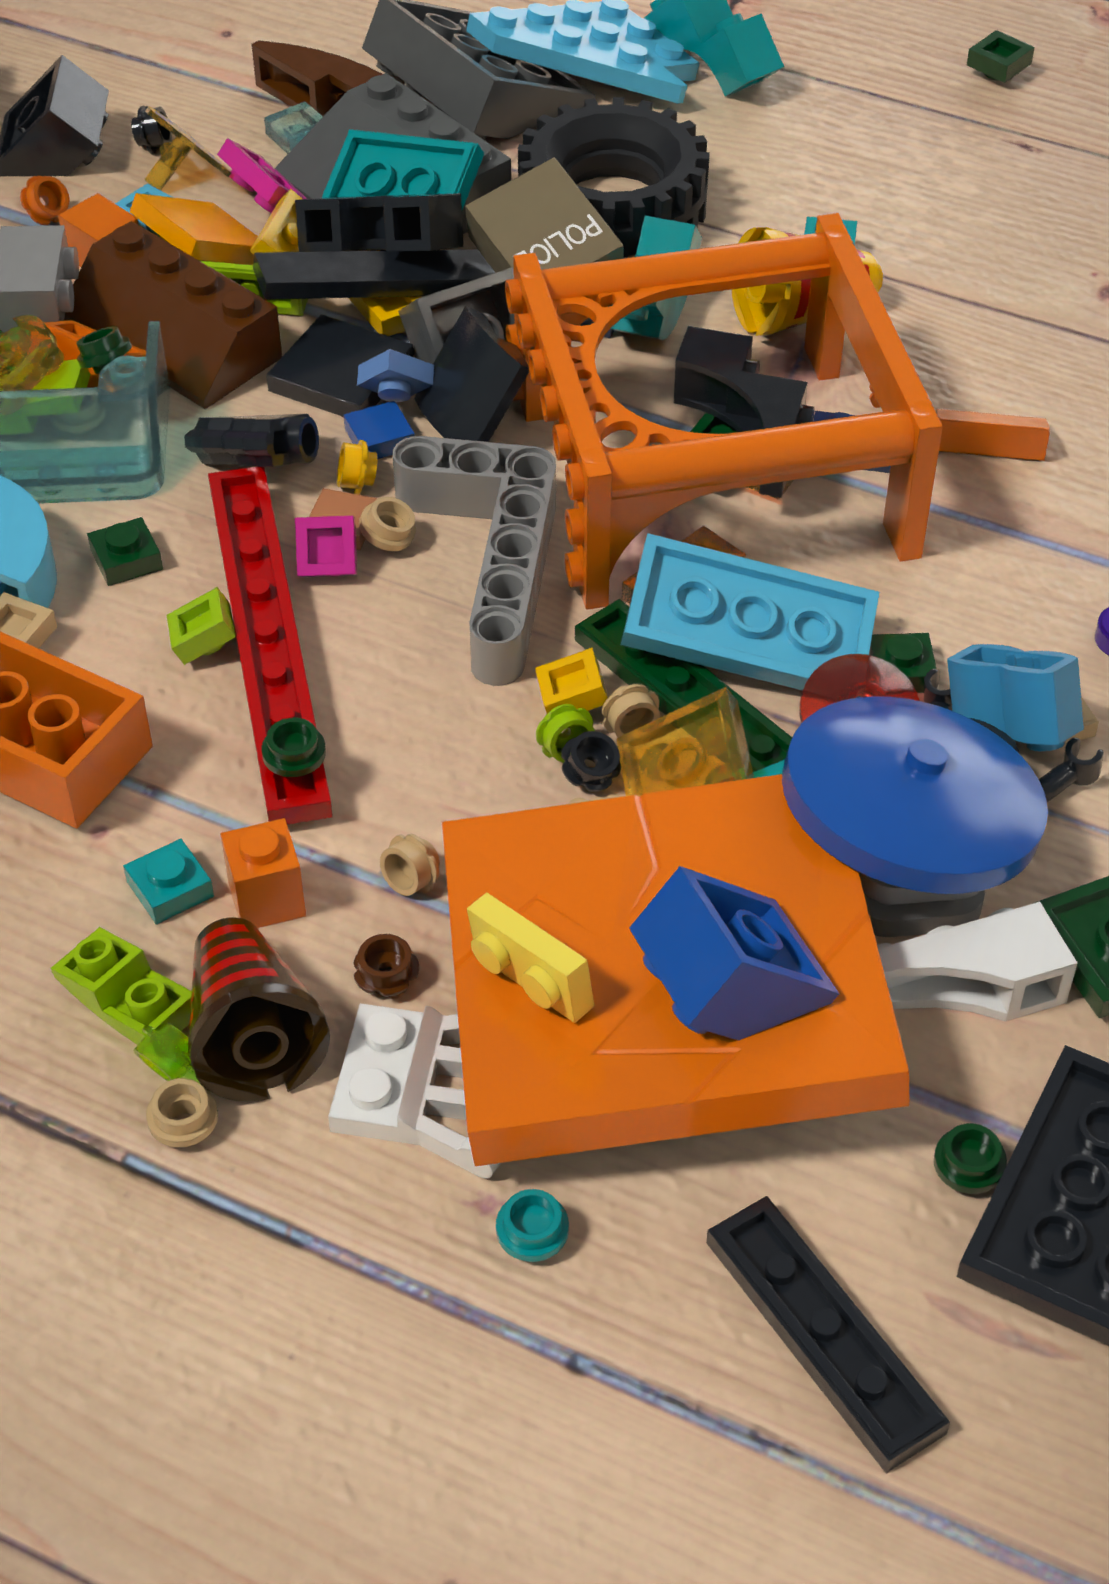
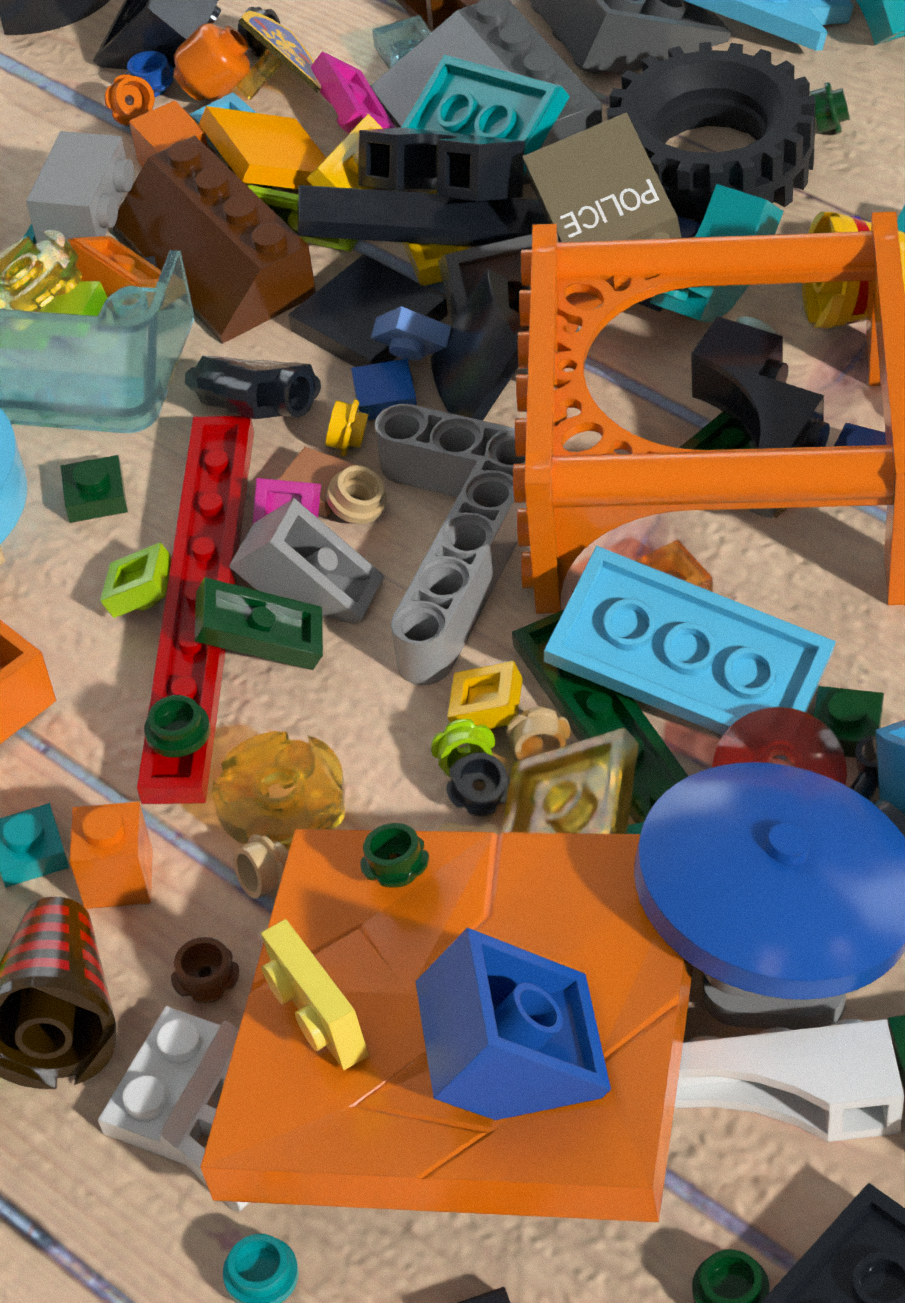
camera: 20 degrees right, 0 degrees up
(60, 167) = (153, 68): none -> blue plate
(101, 348) = (115, 273): dark green plate -> none
(118, 158) = (211, 62): none -> orange head
(337, 647) = (258, 624): none -> dark green plate
(361, 591) = (307, 562): none -> light grey slope
(385, 768) = (269, 759): none -> clear yellow plate
(555, 826) = (393, 855): none -> dark green plate
(716, 146) = (830, 108): none -> dark green plate

